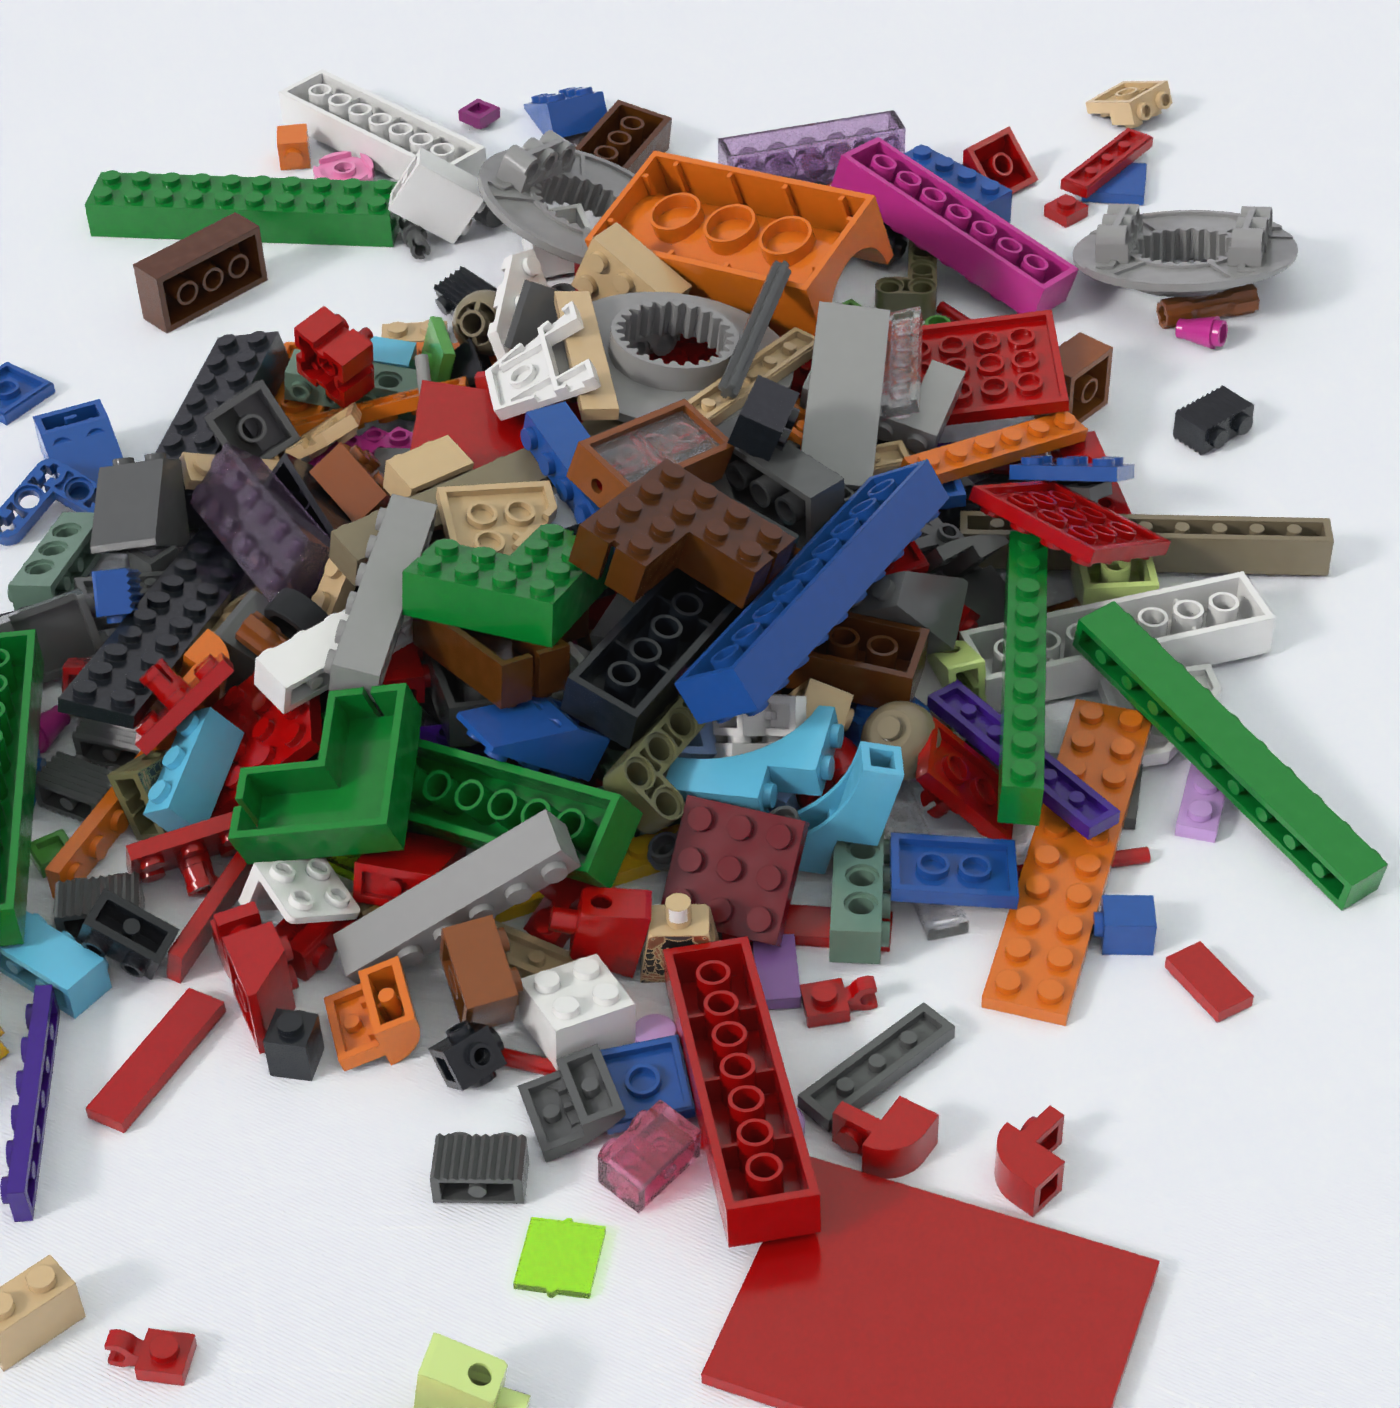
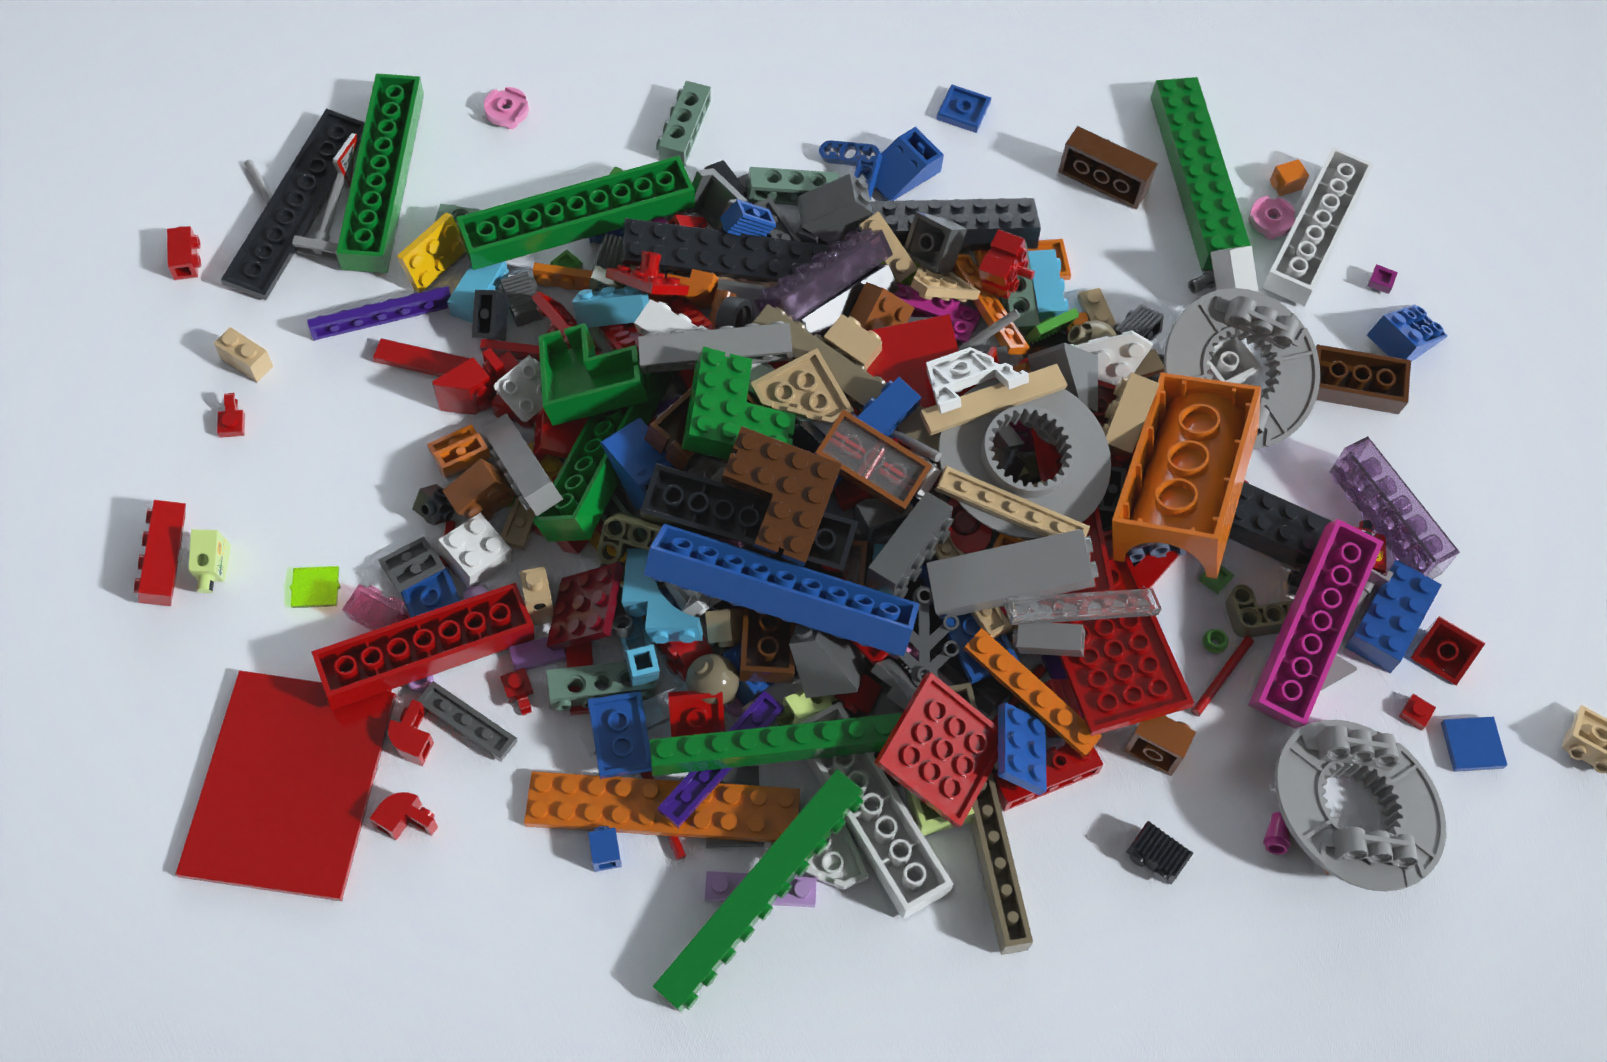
camera: 70 degrees right, 20 degrees up
(294, 1044) = (434, 419): black brick -> none
(479, 1168) = (361, 532): dark grey brick -> none
(606, 923) = (534, 554): red torso -> none
(754, 330) = (1051, 496): dark grey axle -> none
(765, 419) = (926, 518): black brick -> none
(1106, 163) = (1490, 732): red tile -> none
(1209, 981) = (571, 907): red tile -> none

